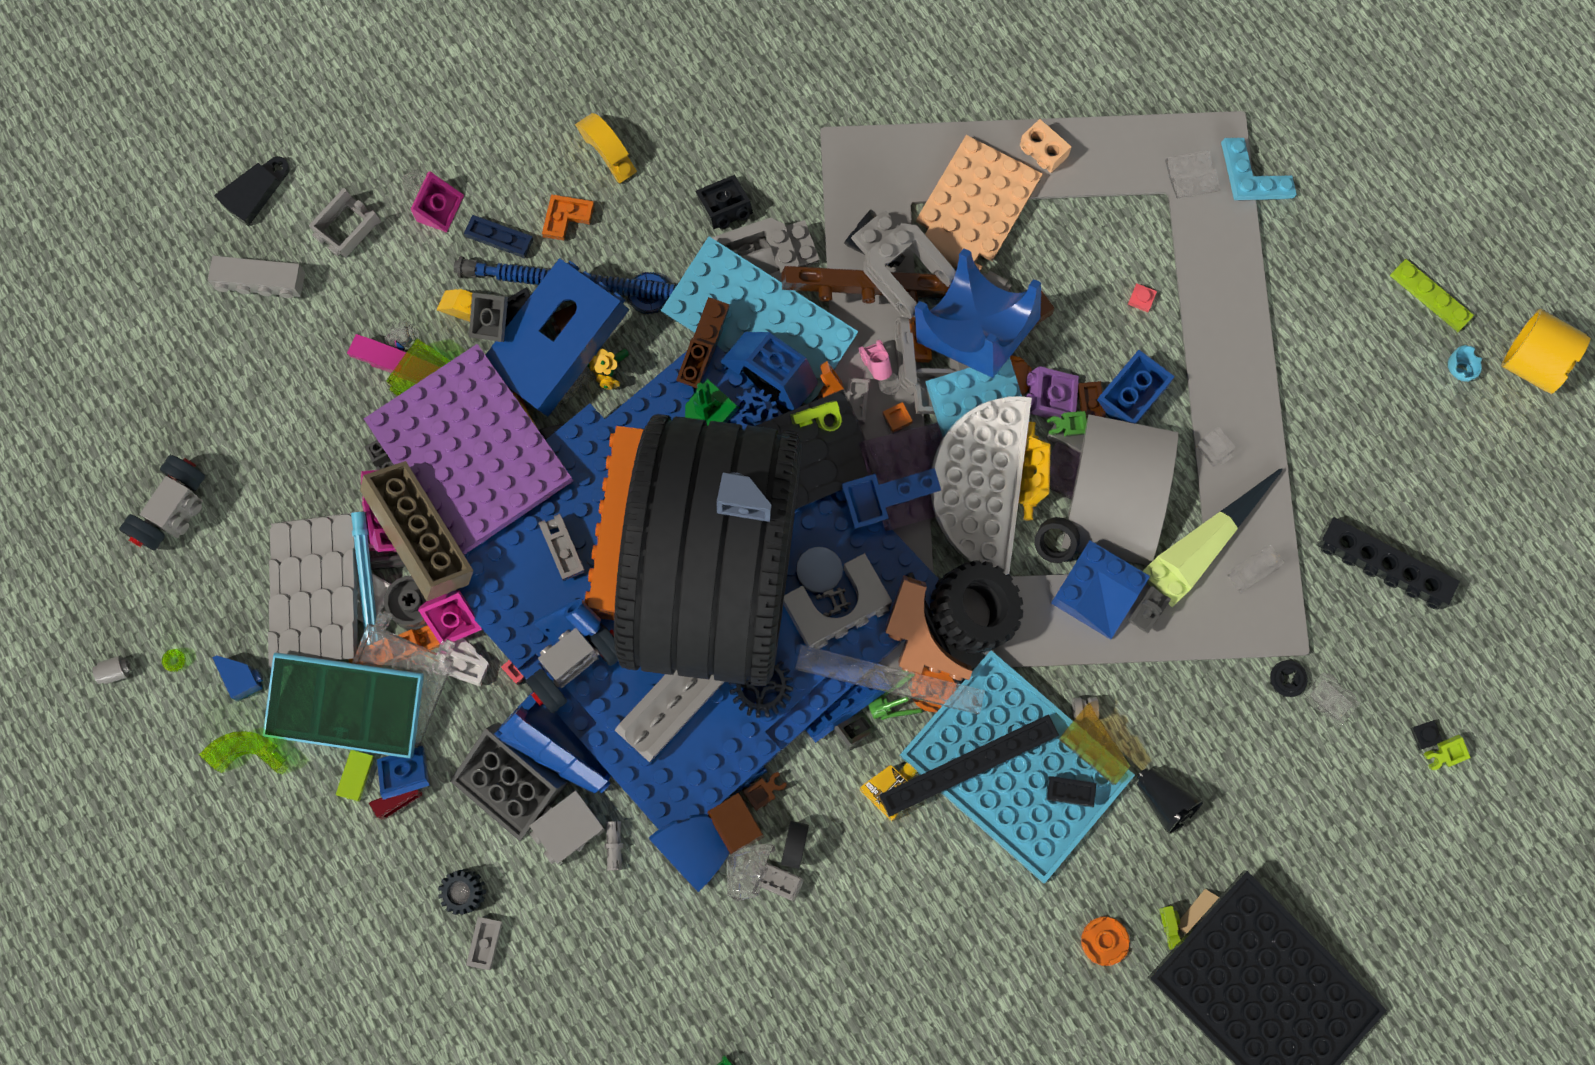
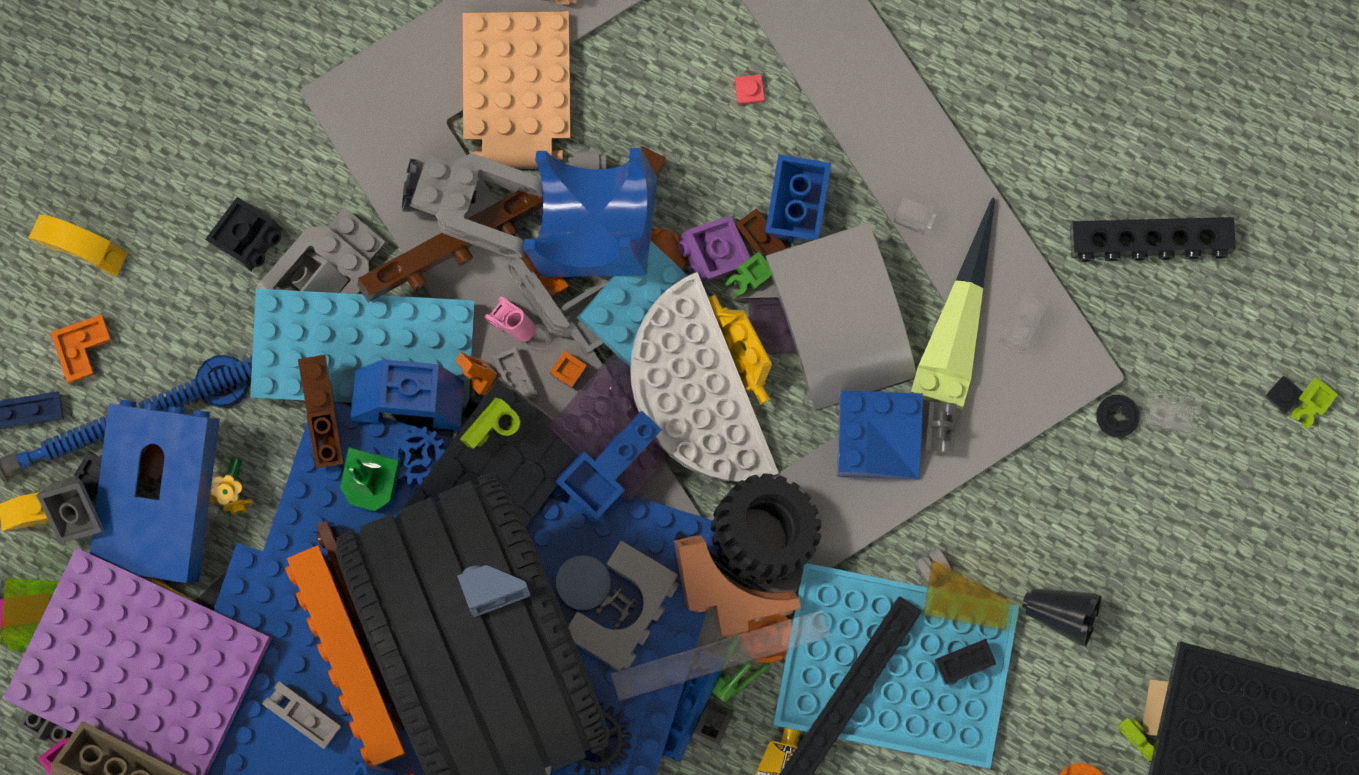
camera: 30 degrees left, 5 degrees up
(1049, 554) = (807, 389): black tyre -> none

